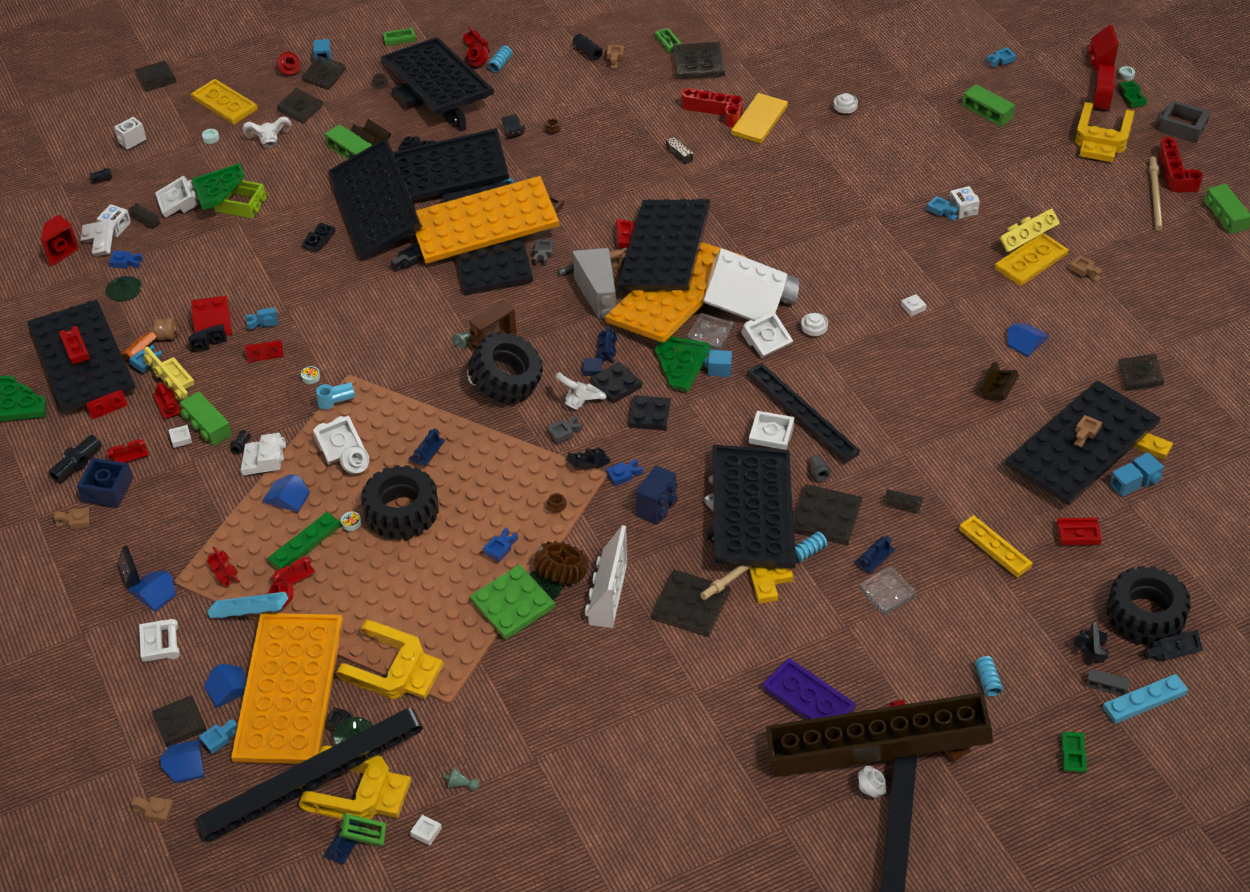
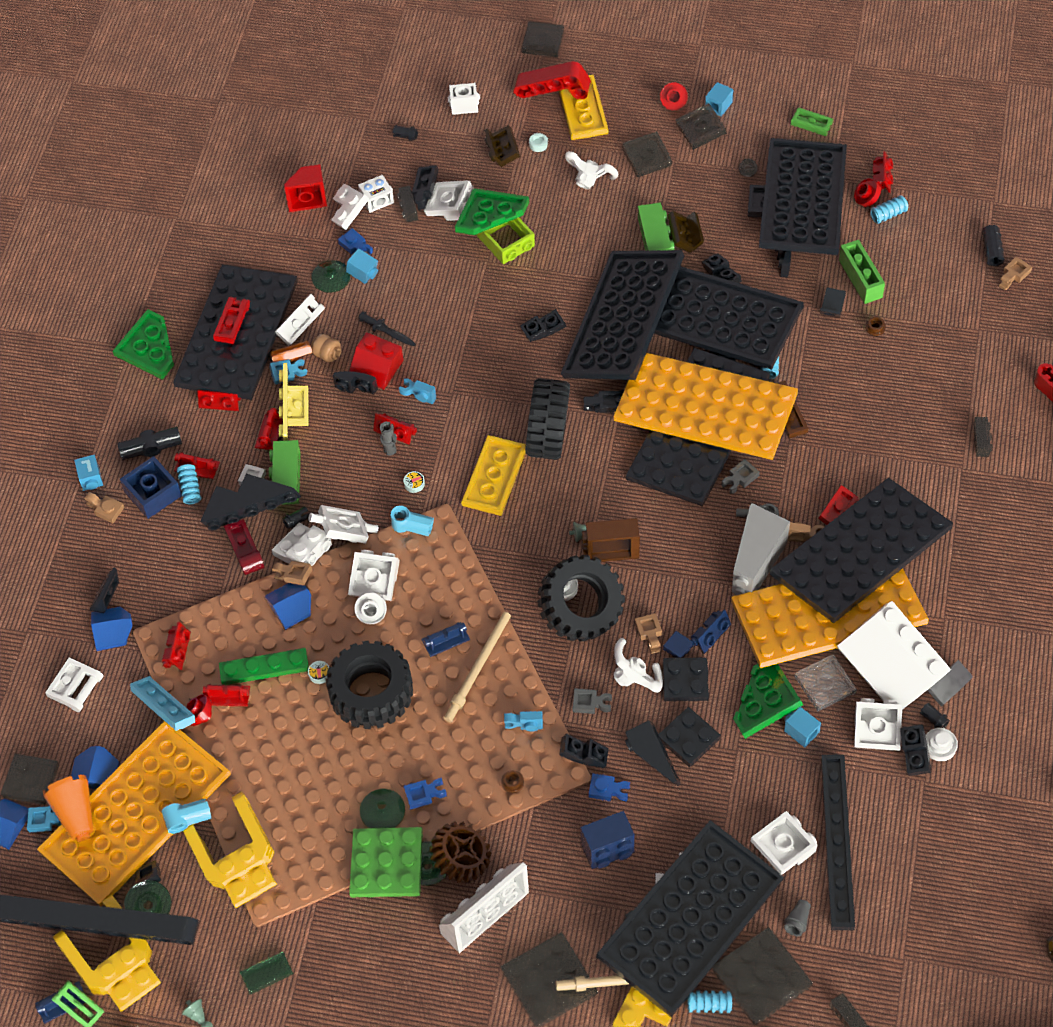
camera: 40 degrees right, 10 degrees up
(41, 502) = (88, 472): none -> dark azure brick
(126, 323) = (299, 320): none -> white plate
(137, 467) = (189, 483): none -> medium azure piece
(146, 267) = (362, 266): none -> dark azure brick
(148, 197) = (424, 185): none -> black hinge
(187, 148) = (502, 145): none -> dark brown bracket
(187, 298) = (379, 325): none -> black sword
(190, 90) = (552, 79): none -> red beam
(199, 441) = (252, 497): none -> black slope
(217, 481) = (244, 547): none -> dark red plate
(239, 705) = (72, 806): none -> orange cone
(269, 354) = (388, 438): none -> dark grey pin
(275, 470) = (293, 573): none -> medium nougat plate
(285, 422) = (343, 524): none -> white plate
(333, 662) = (179, 816): none -> medium azure piece
(366, 340) = (494, 475): none -> yellow tile
(383, 277) = (547, 418): none -> black tyre
(471, 478) = (459, 699): none -> tan bar
(472, 579) = (388, 817): none -> clear green dish
(486, 724) = (266, 973): none -> clear green tile
(516, 98) = (861, 271): none -> bright green brick
(534, 461) = (528, 720): none -> dark azure plate
(566, 367) = (649, 628): none -> medium nougat plate
(634, 431) = (648, 745): none -> black slope
(796, 312) = (934, 716): none -> black pin
(803, 334) = (915, 749): none -> black slope

